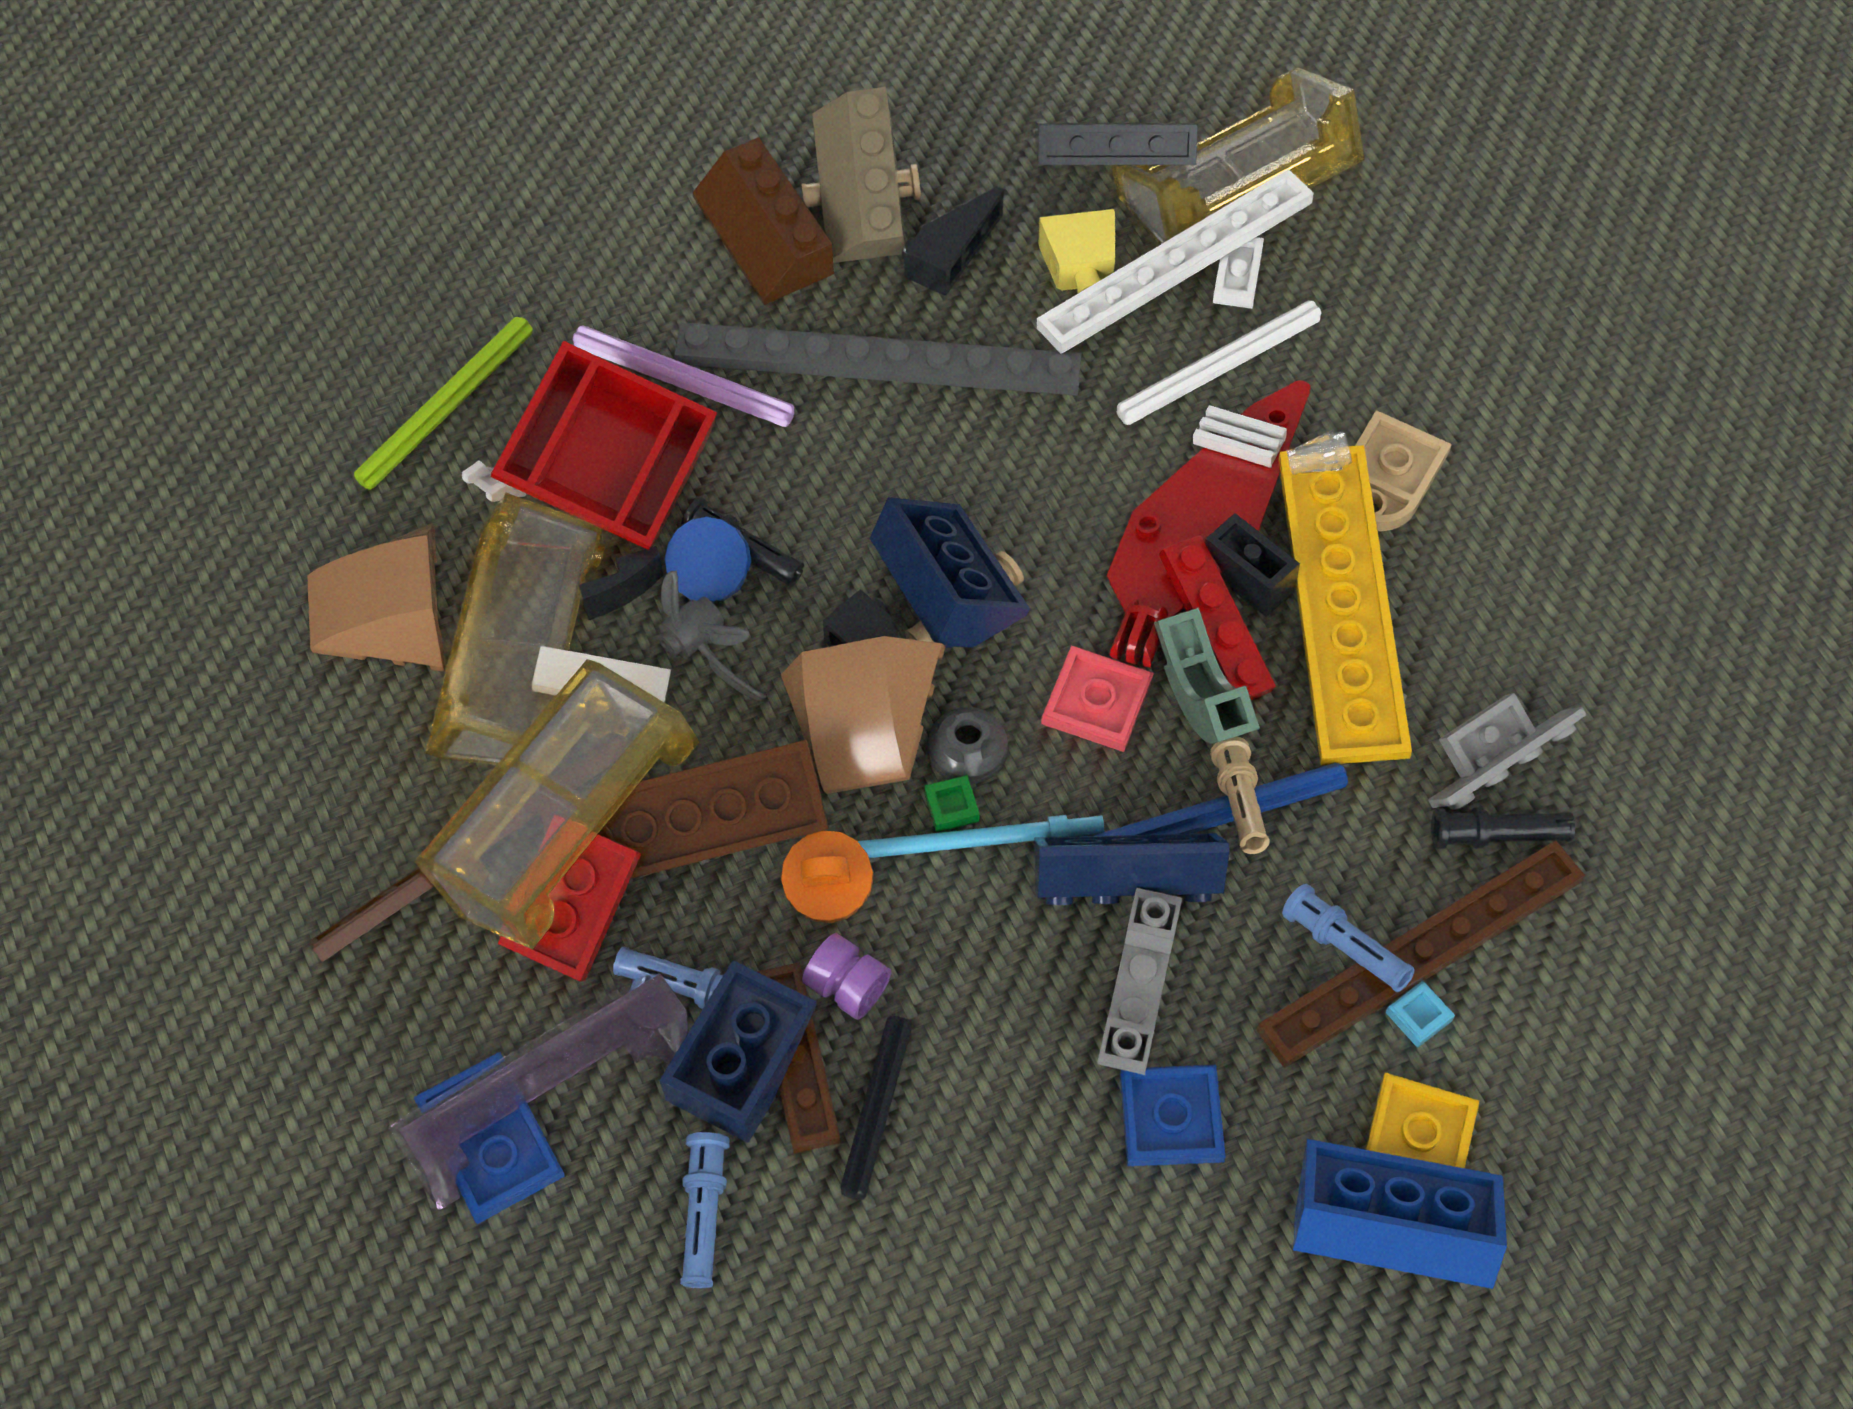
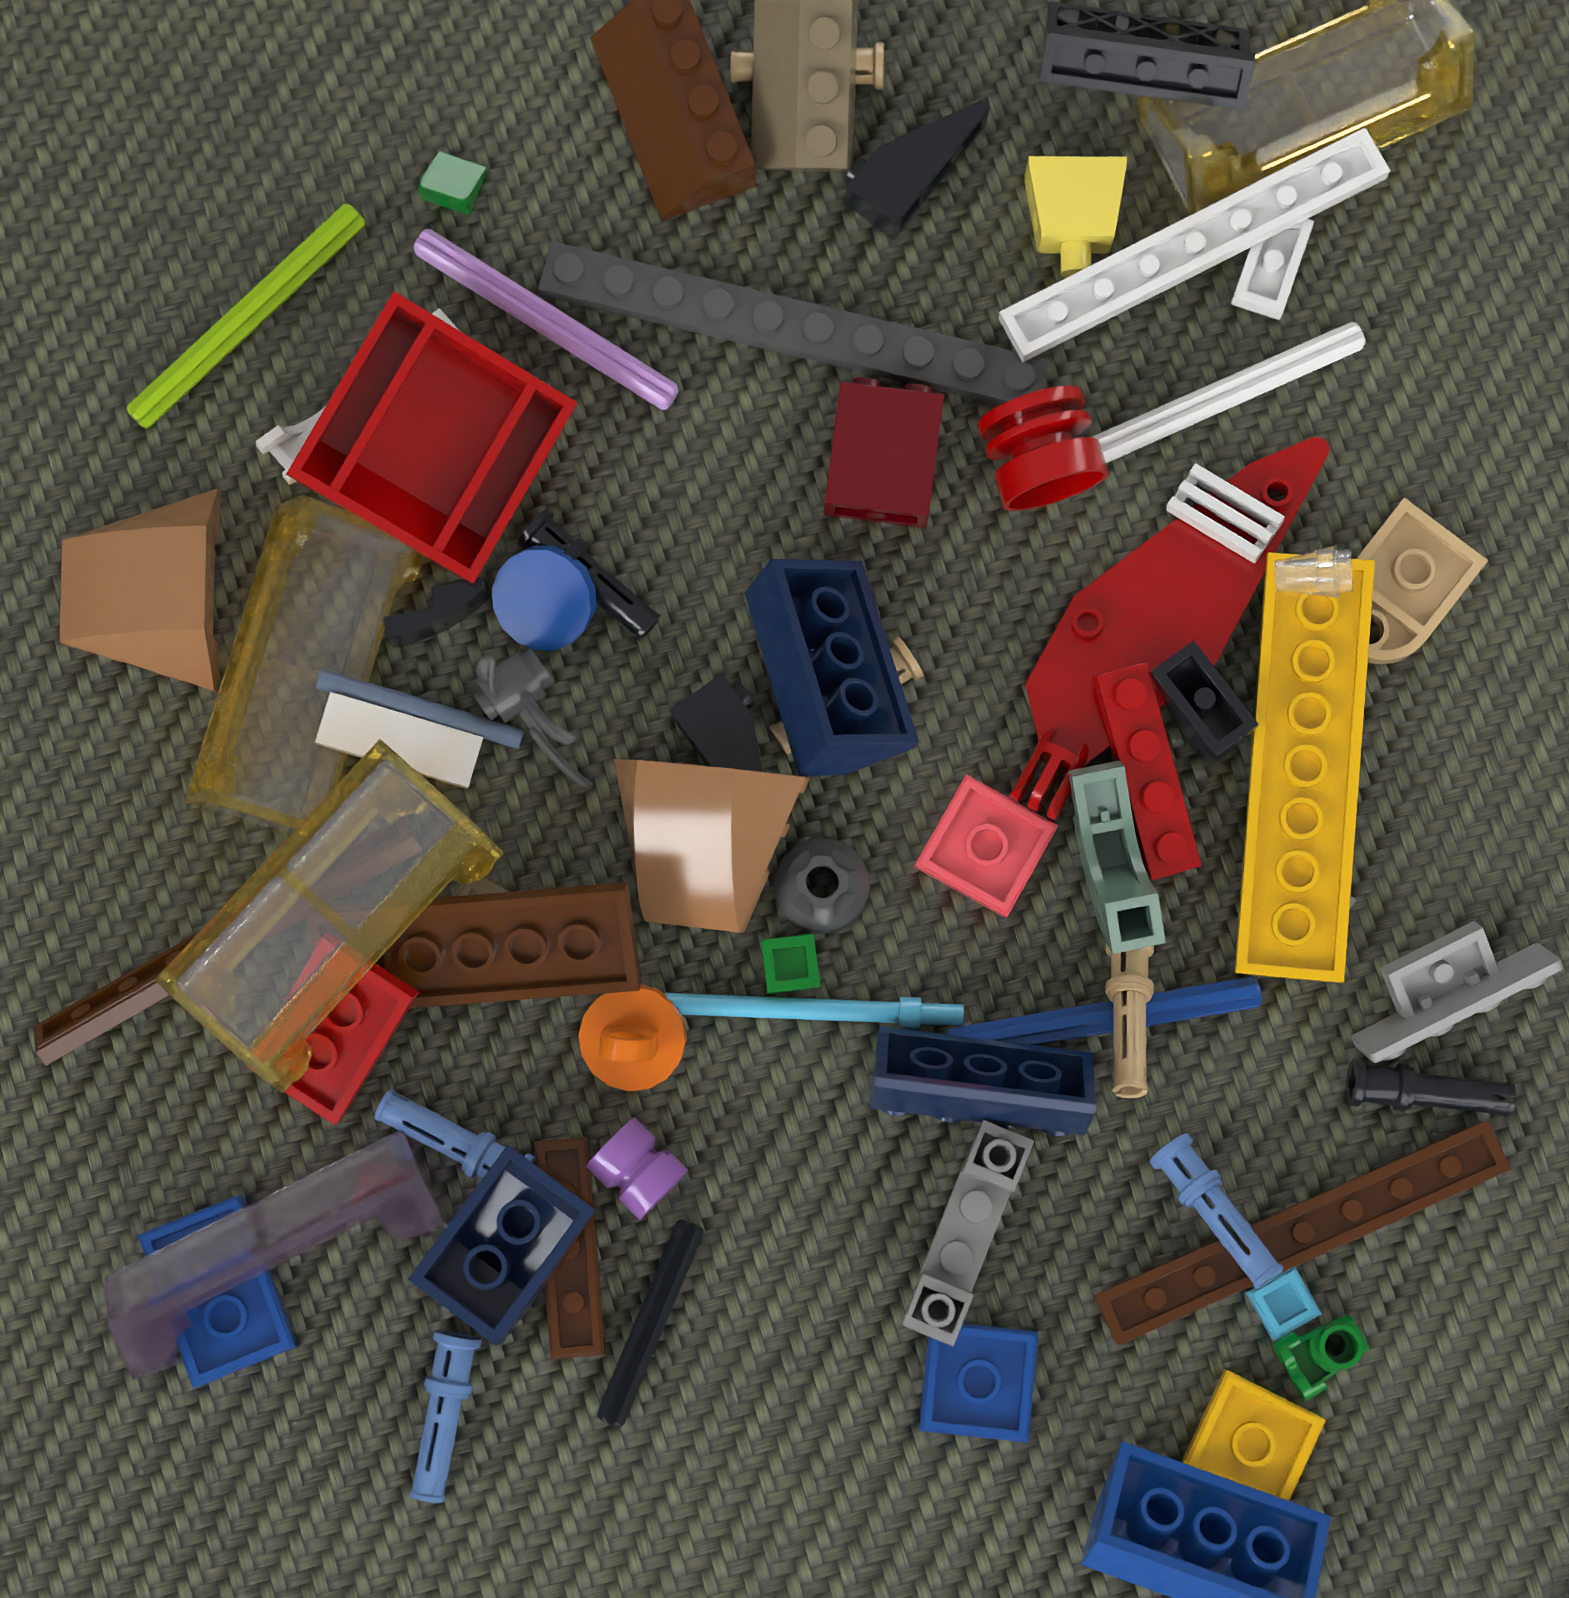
camera: 10 degrees right, 20 degrees up
(597, 297) = (452, 183): none -> slope
(678, 665) = (420, 708): none -> sand blue bar
(964, 430) = (883, 453): none -> dark red panel
(1088, 403) = (1040, 442): none -> red wheel
(1457, 1053) = (1310, 1363): none -> green plate

